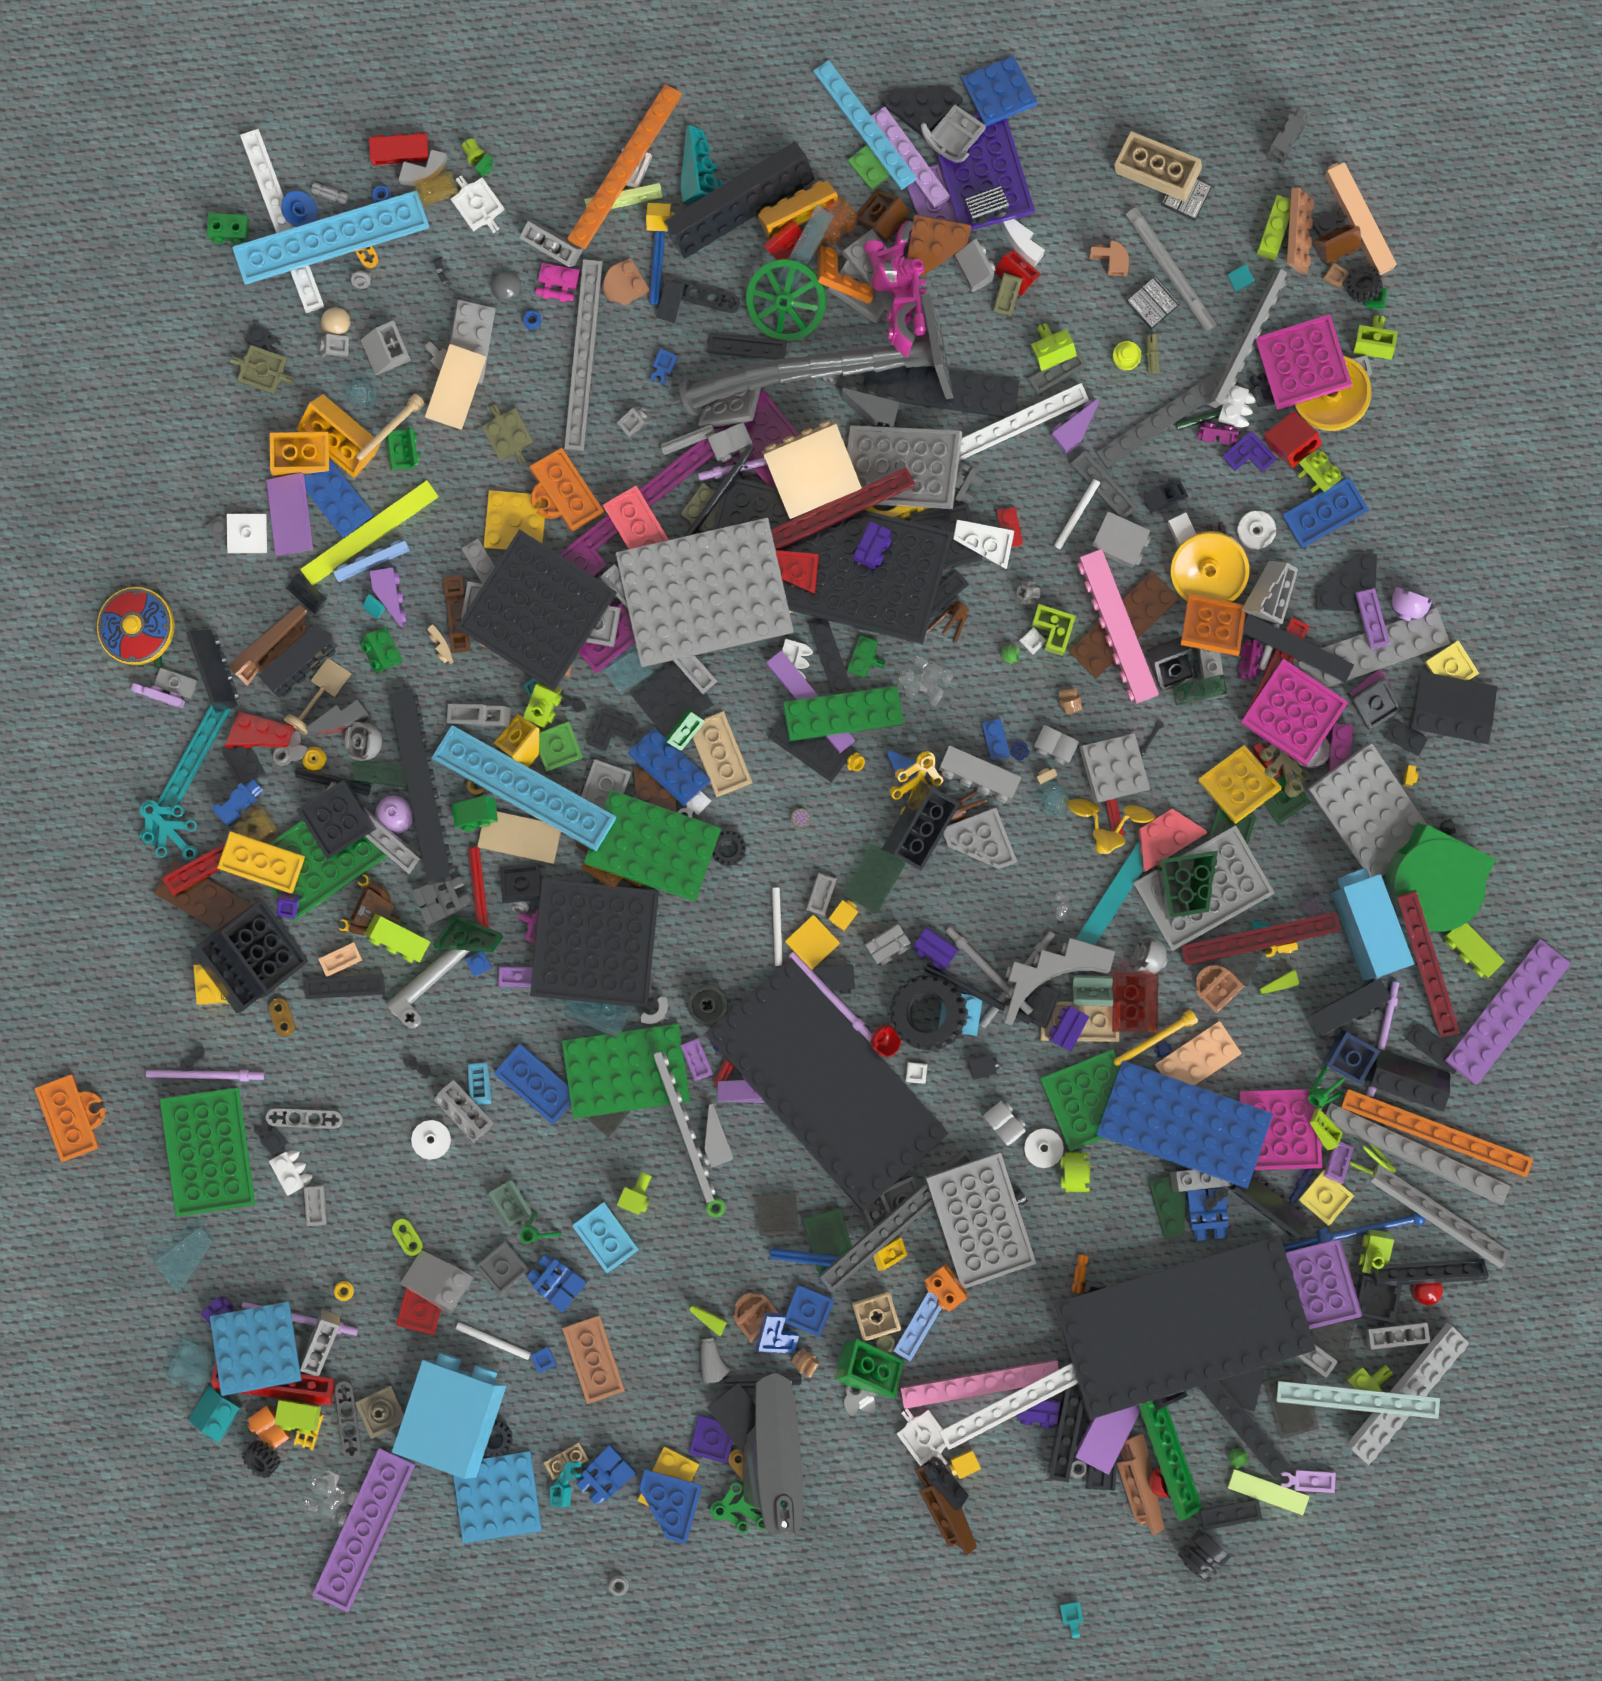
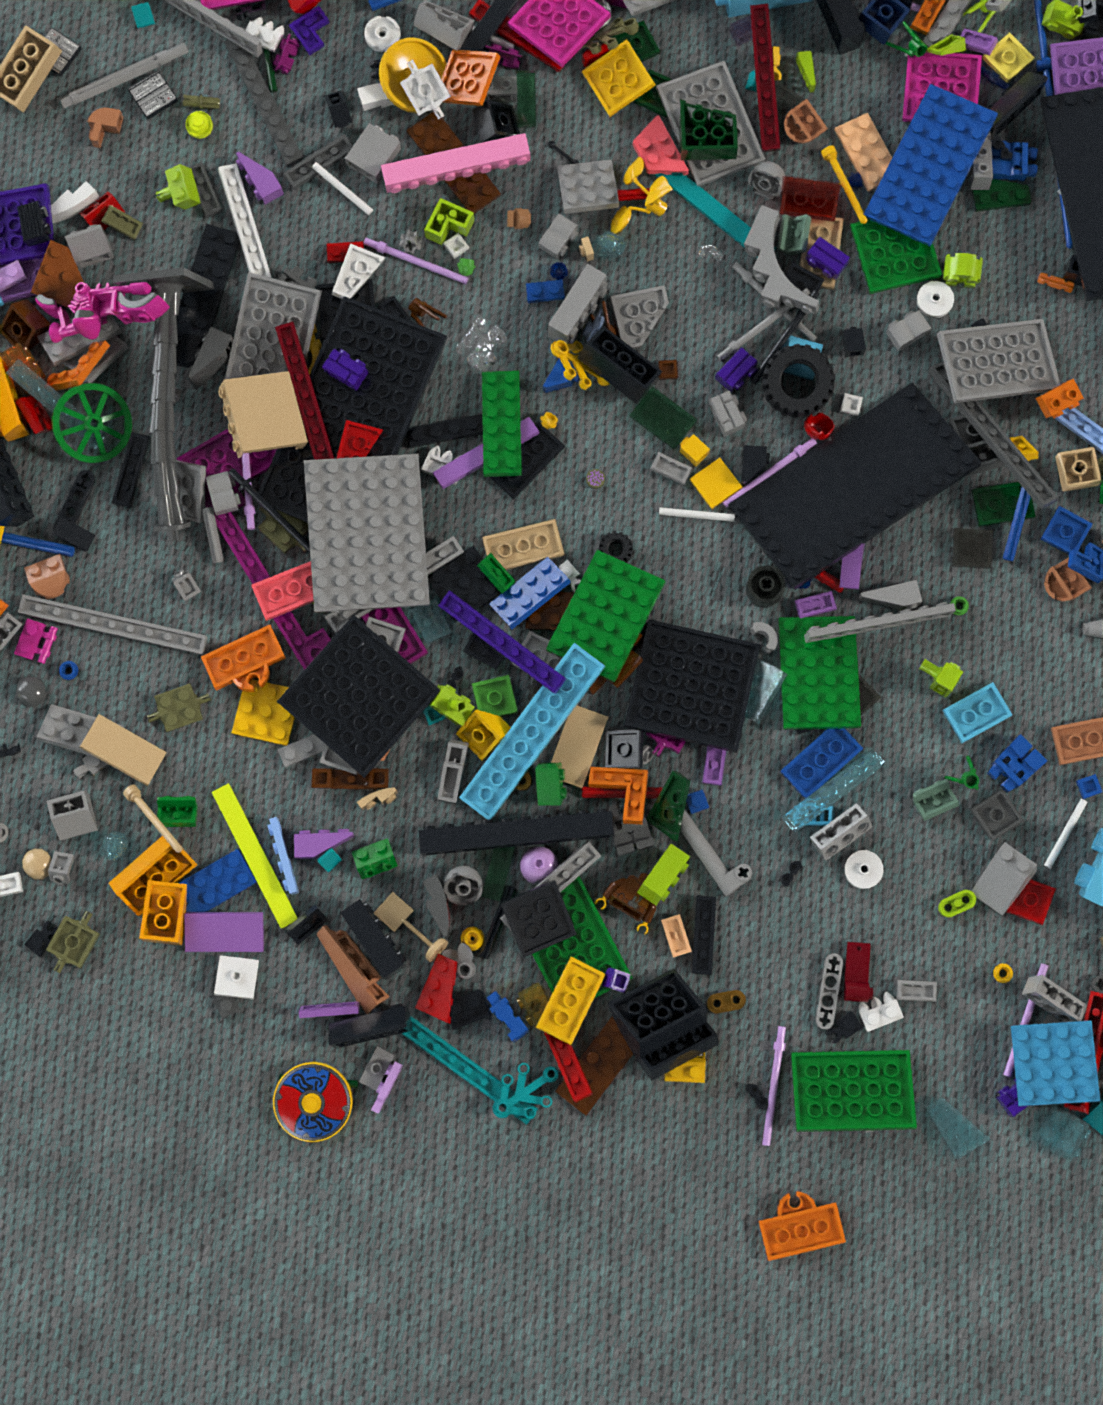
camera: 80 degrees left, 5 degrees down
(225, 628) = (329, 1009): none -> medium lavender tile
(326, 1144) = (857, 973): none -> dark red door
(488, 896) = (620, 778): none -> orange plate
(505, 1099) = (833, 790): none -> clear light blue plate
(610, 744) = (502, 642): none -> dark purple tile
(665, 364) = (133, 548): blue plate -> none
(713, 1321) = (1069, 619): lime slope -> none
(864, 657) = (449, 399): green plate -> none
(928, 878) = (669, 369): none -> reddish brown tile
(960, 793) = (592, 328): none -> sand blue plate
(1019, 565) = (383, 248): none -> lavender bar
(1192, 583) = (425, 89): none -> white plate

